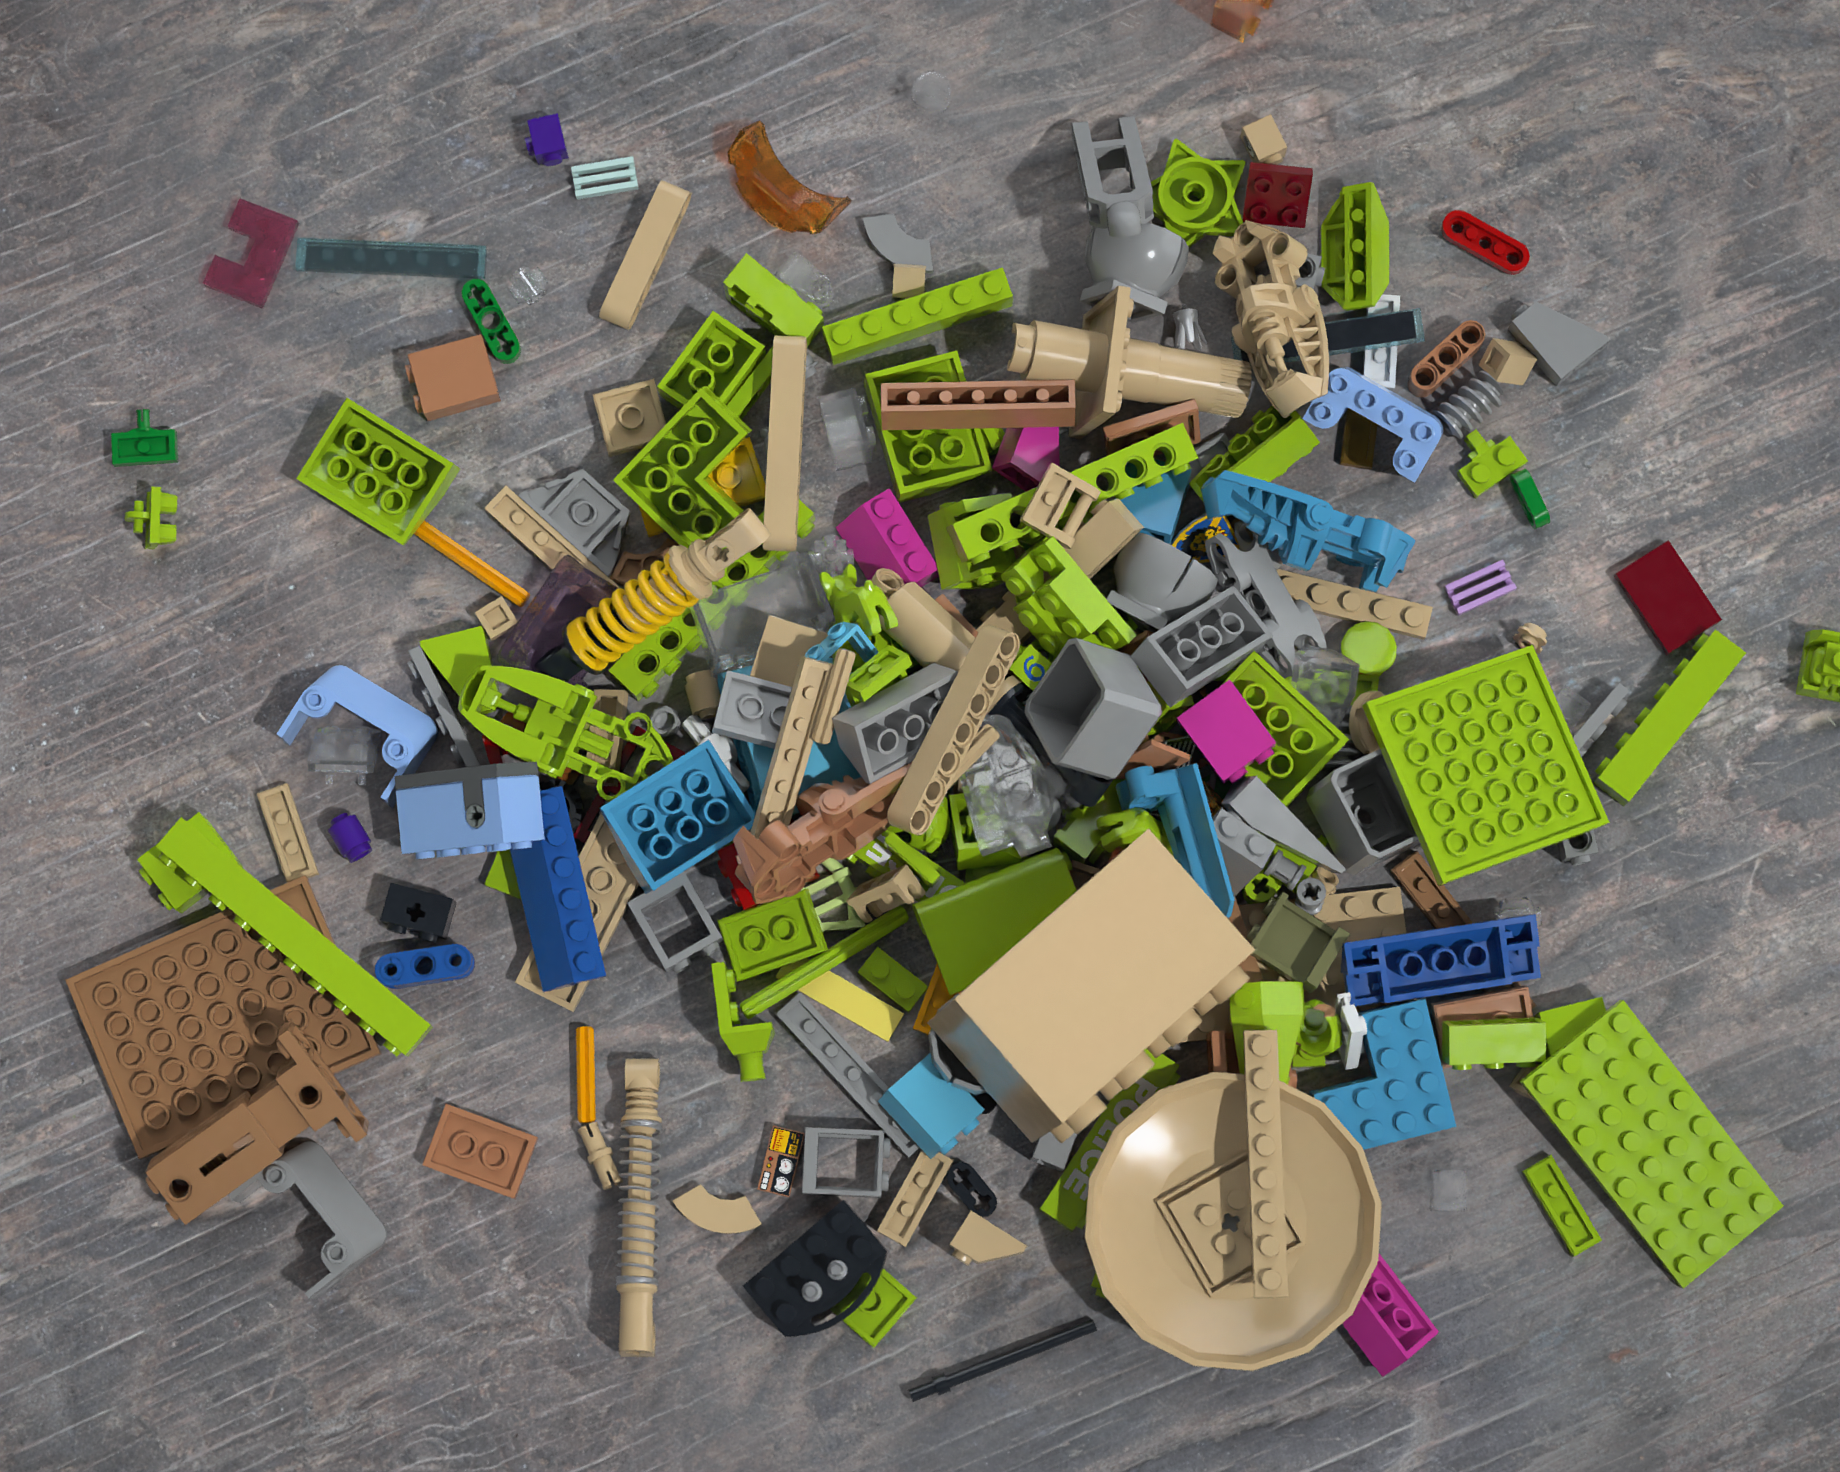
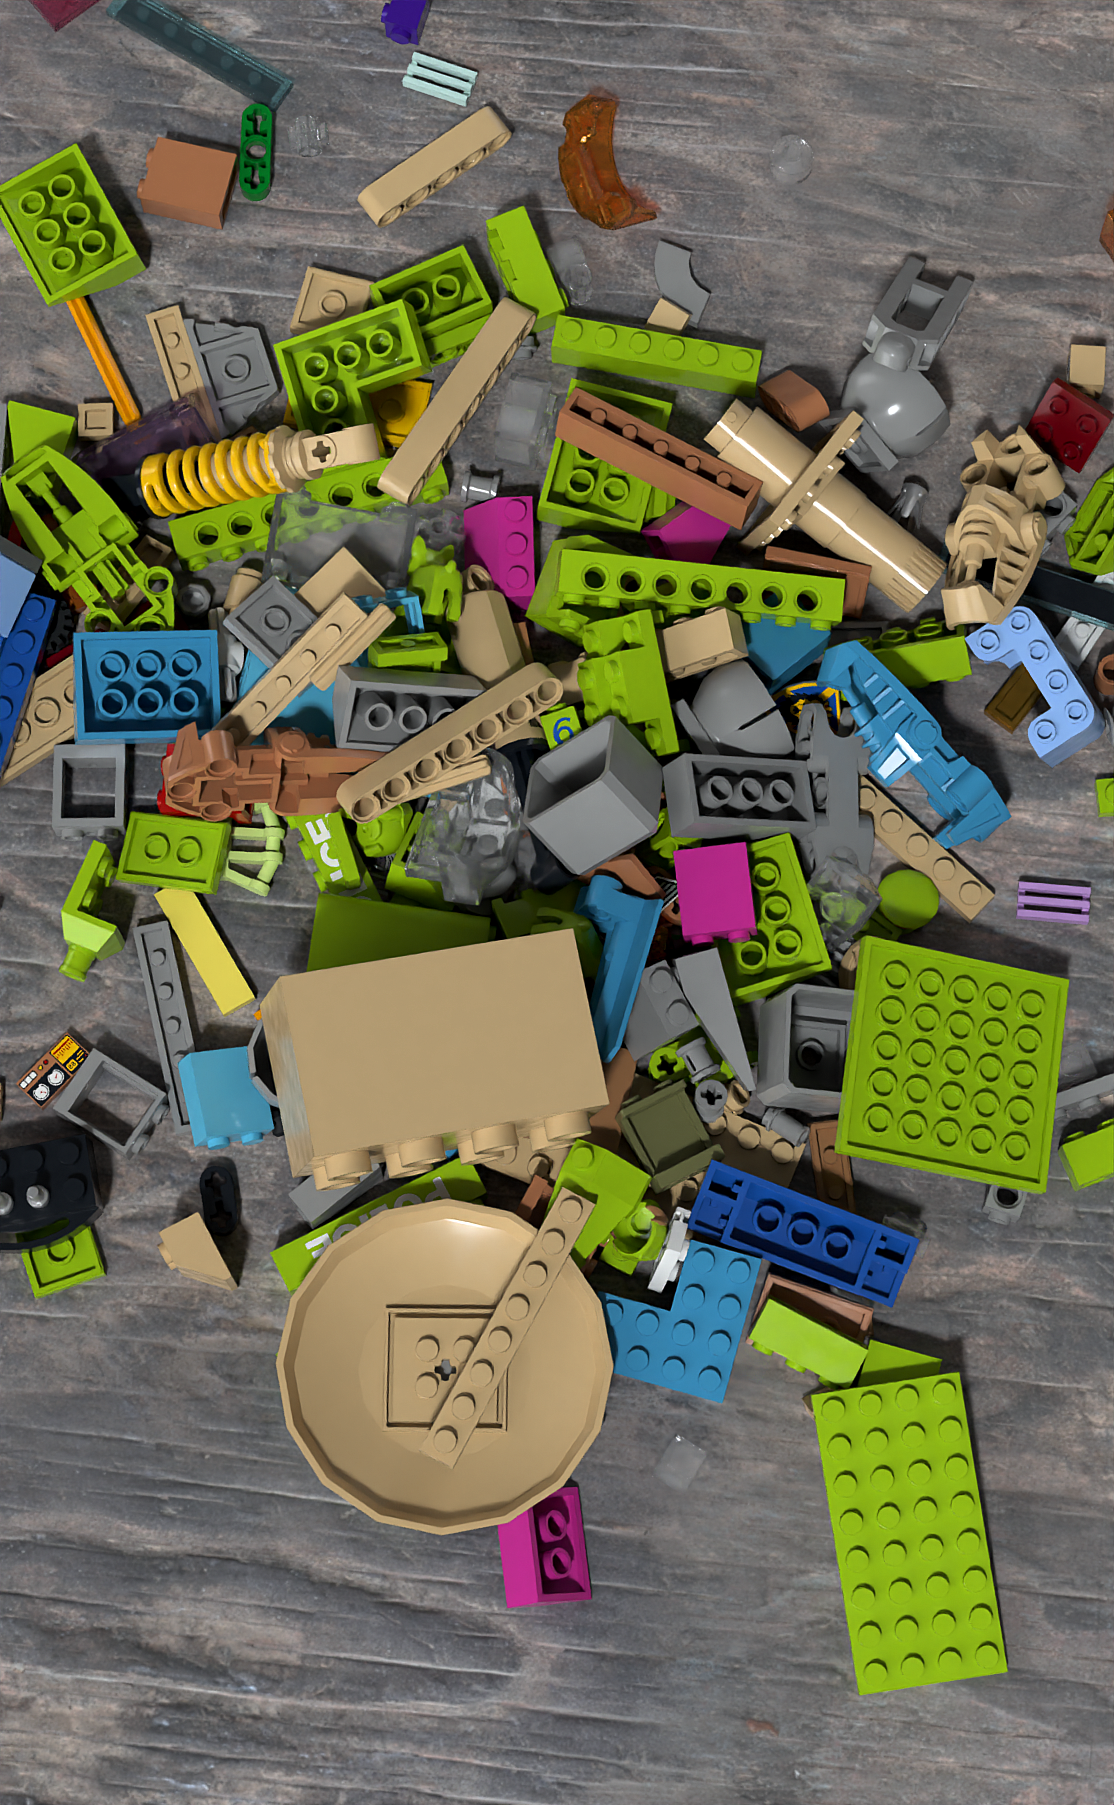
camera: 30 degrees right, 5 degrees down
(823, 962) = (206, 904): lime axle -> none
(839, 502) = (479, 487): none -> light grey bush
(886, 893) = (302, 871): tan hinge -> none
(893, 979) = (261, 956): lime plate -> none
(914, 1197) = (159, 1176): tan plate -> none
(942, 1383) = (79, 1369): black bar -> none
(1050, 501) = (671, 577): tan plate -> none
(1051, 294) = (793, 400): none -> nougat beam
(1210, 181) = (990, 365): lime plate -> none
(1376, 881) = (785, 1125): none -> light grey pin
(1529, 635) = (1078, 976): tan plate -> none
(1561, 1205) = (785, 1545): lime tile -> none

